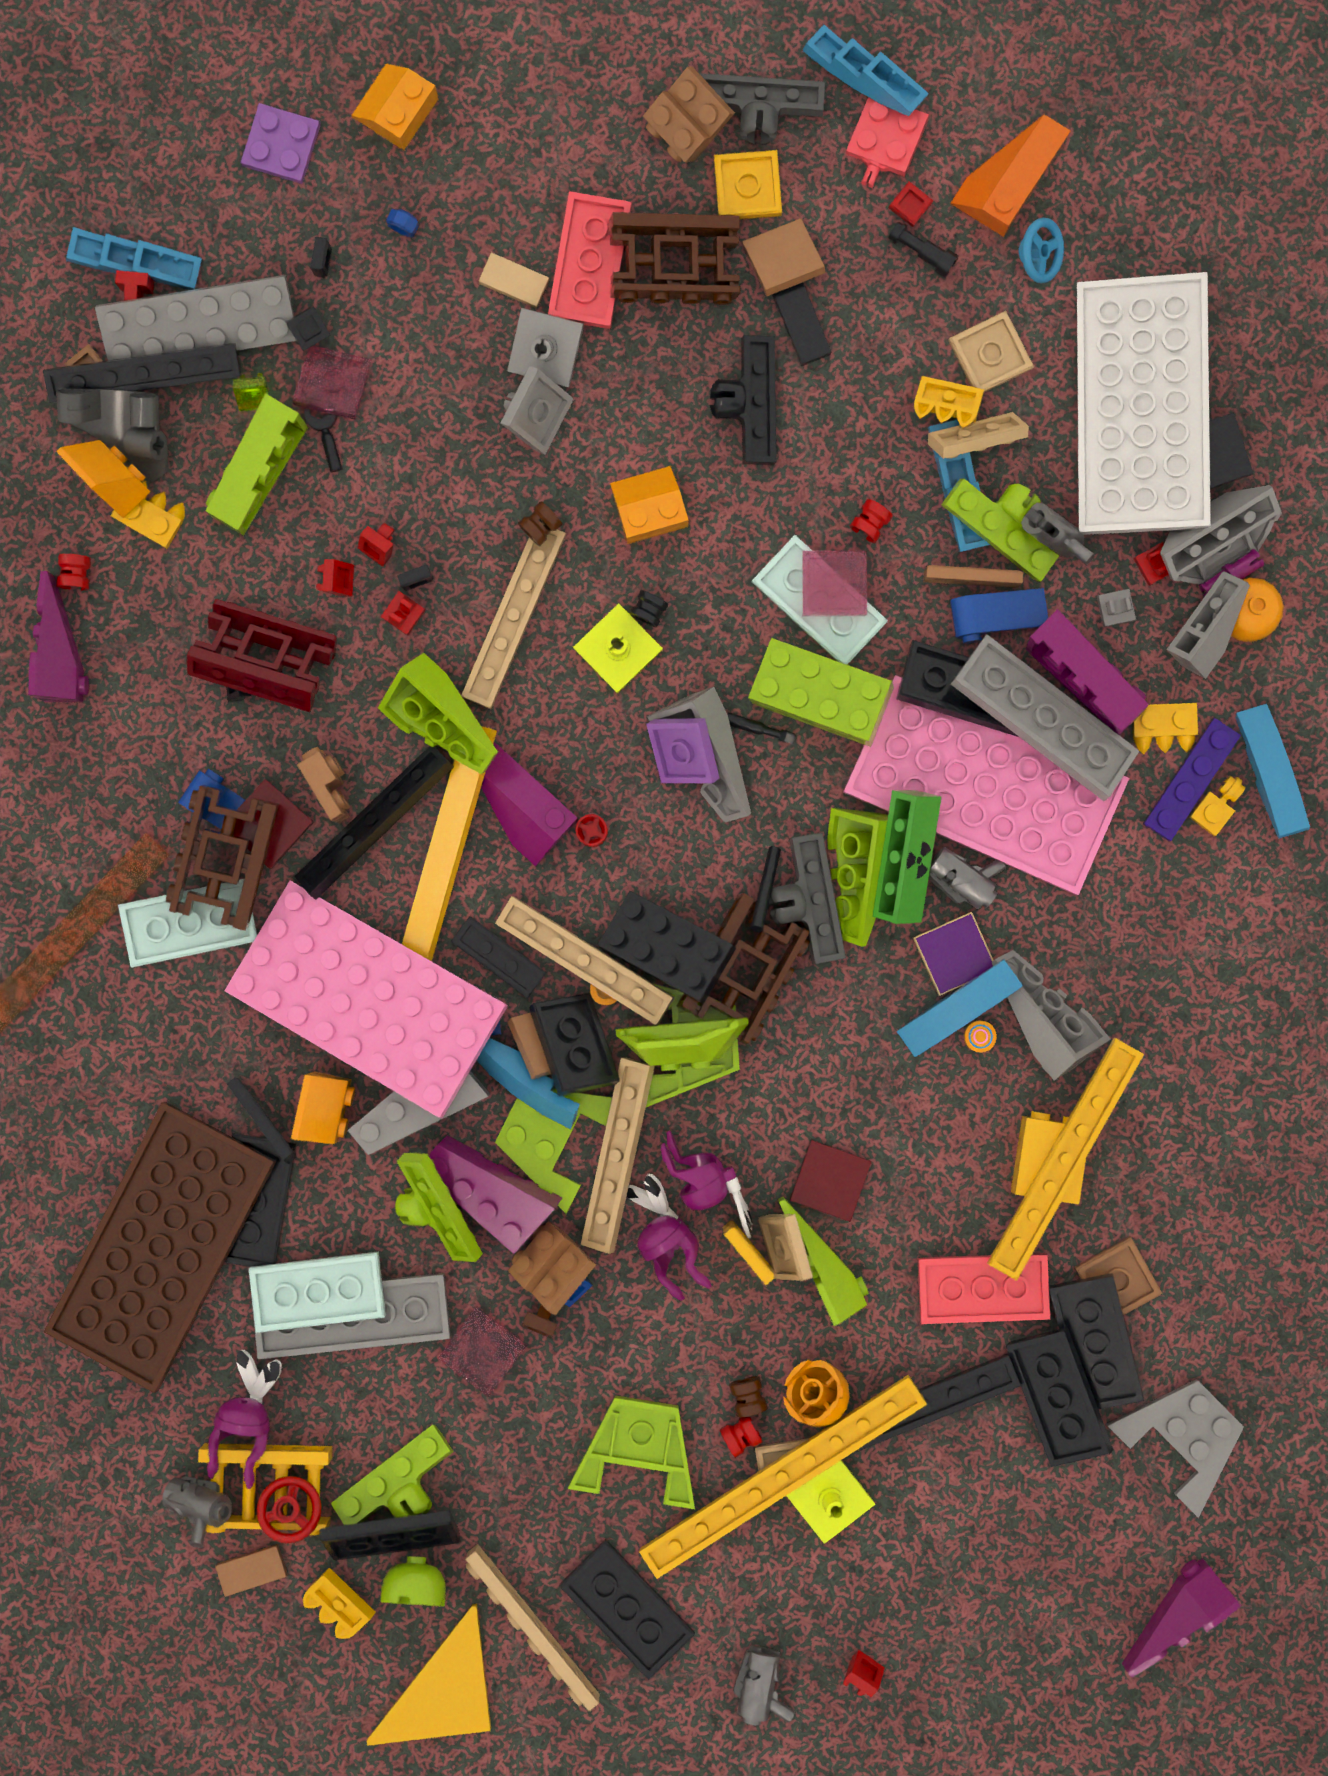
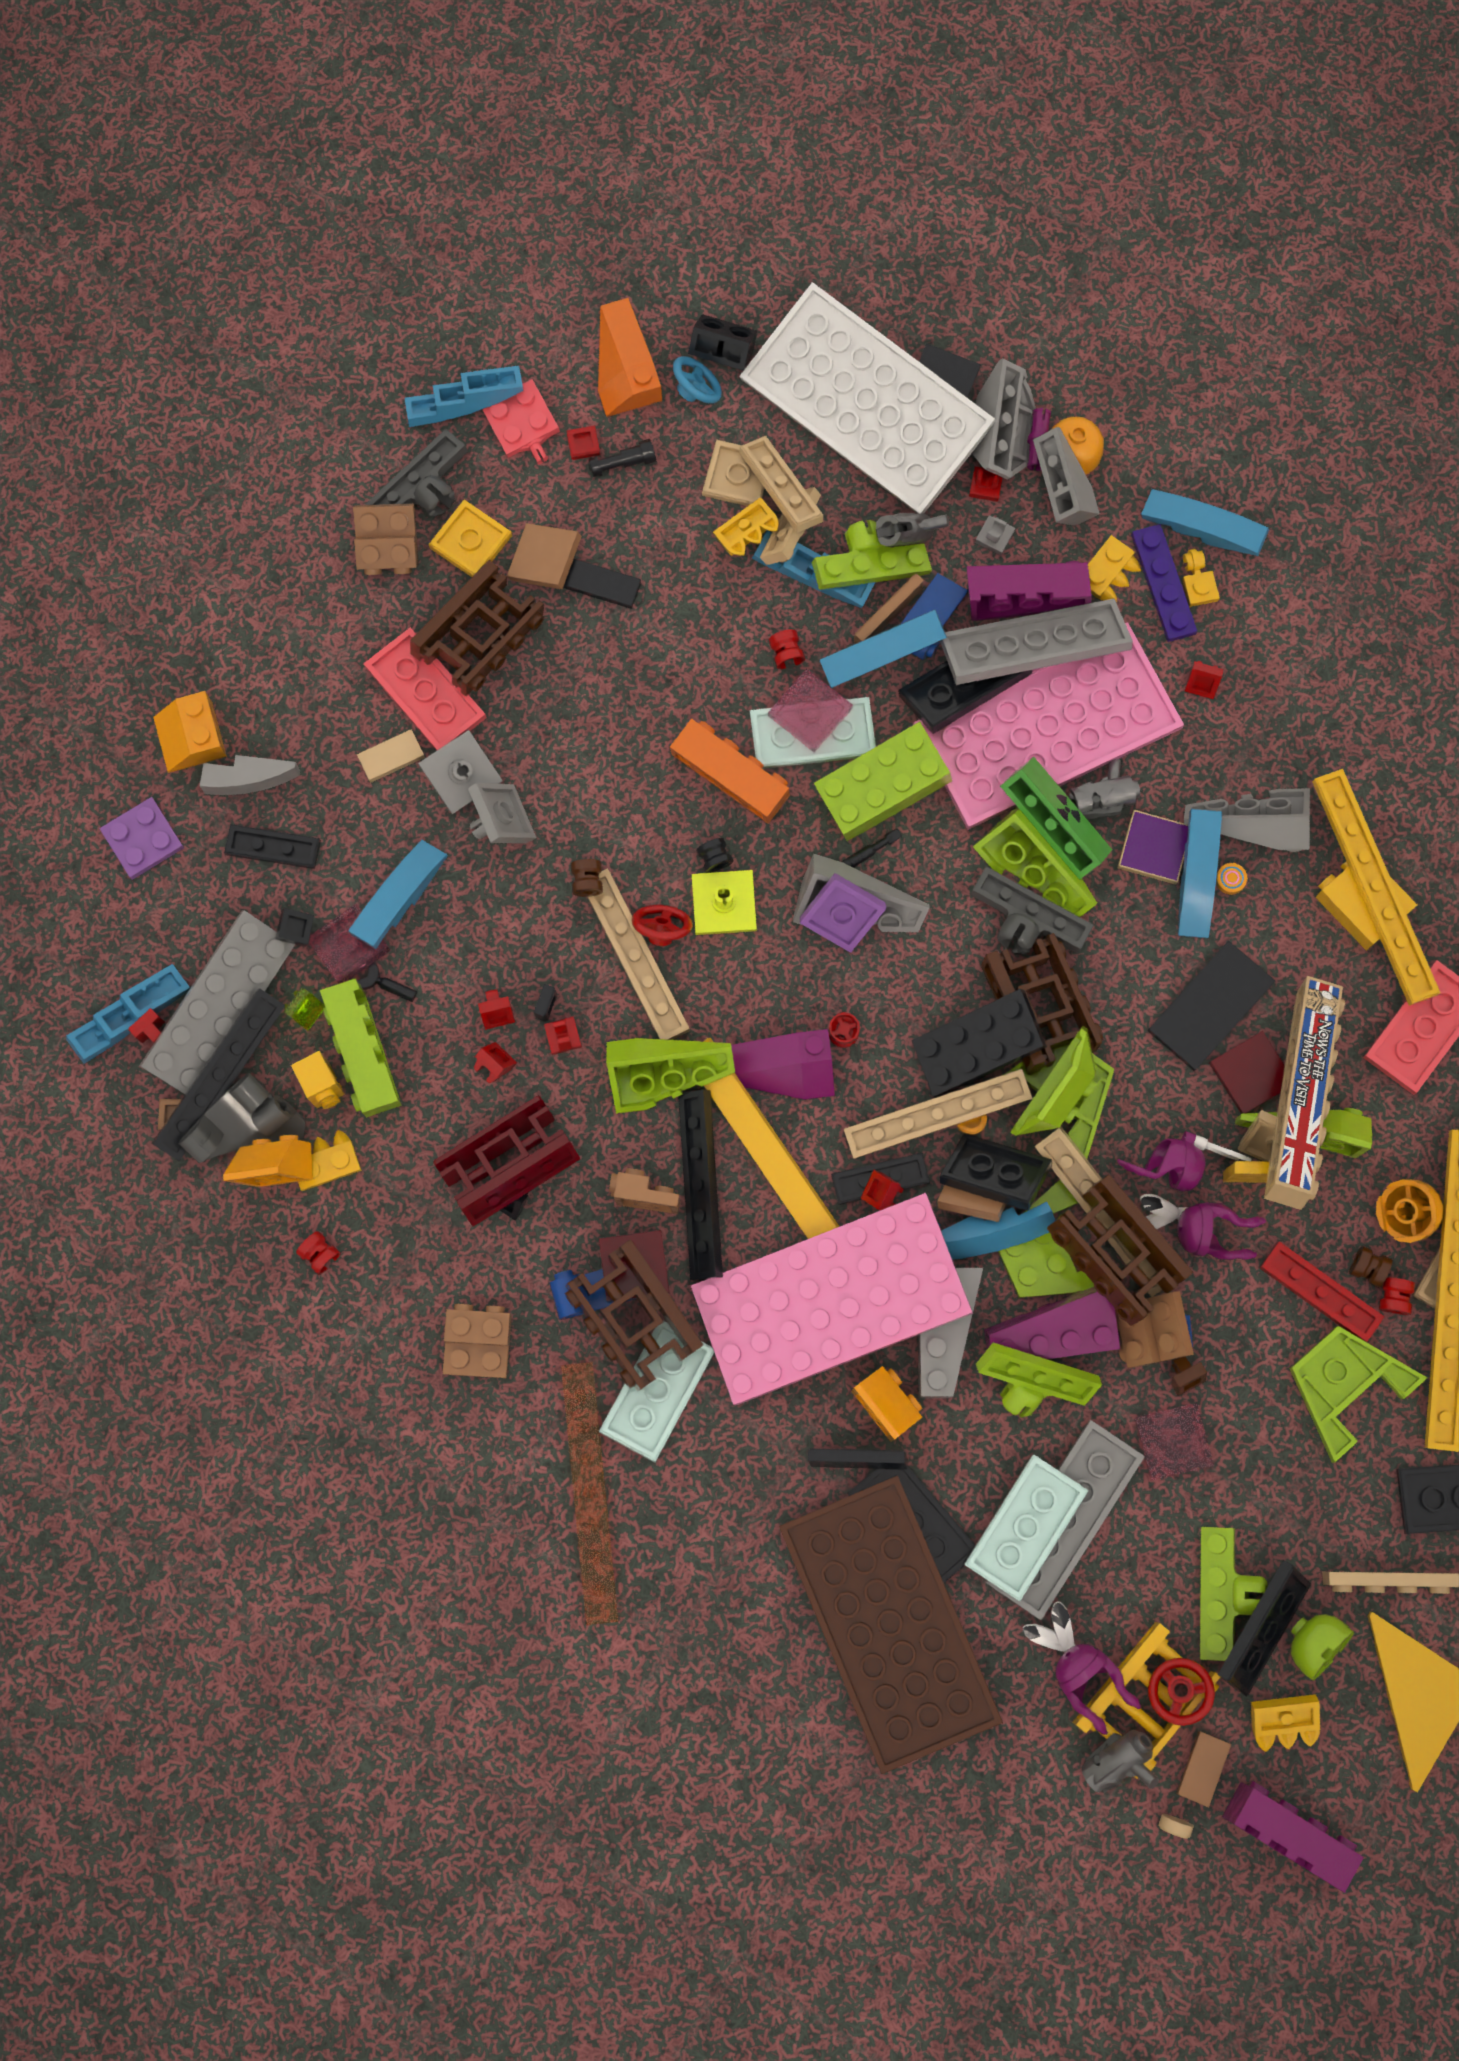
camera: 50 degrees left, 10 degrees down
(56, 666) = (376, 1321): magenta wedge -> none
(109, 753) = (477, 1341): none -> medium nougat plate
(189, 1583) = (1175, 1826): none -> tan tile
(200, 455) = (318, 1080): none -> yellow brick
(254, 1676) = (1293, 1836): none -> magenta wedge
(321, 257) = (251, 876): black tile -> none
(361, 252) = (272, 846): none -> black tile
(398, 180) = (246, 775): none -> light grey slope
(402, 222) = (278, 798): blue tile -> none
(404, 385) = (397, 894): none -> dark azure slope
(484, 967) = (881, 1190): none -> red tile
(551, 616) = (660, 929): none -> red piece
(611, 1196) = (1135, 1234): none -> reddish brown fence
(649, 504) = (639, 792): light orange slope -> none
(696, 1374) = (1321, 1292): none -> red plate
(728, 561) = (730, 770): none -> orange brick
(752, 399) = (626, 660): black plate -> none
(765, 889) = (995, 938): black bar -> none
(836, 1238) = (1304, 1094): none -> brick
(859, 1104) = (1211, 1005): none -> black tile
(933, 599) = (883, 648): none -> dark azure slope
(1006, 397) = (781, 484): none -> tan tile
(1094, 243) = (722, 342): none -> black brick
(1132, 879) = (1204, 680): none -> red tile

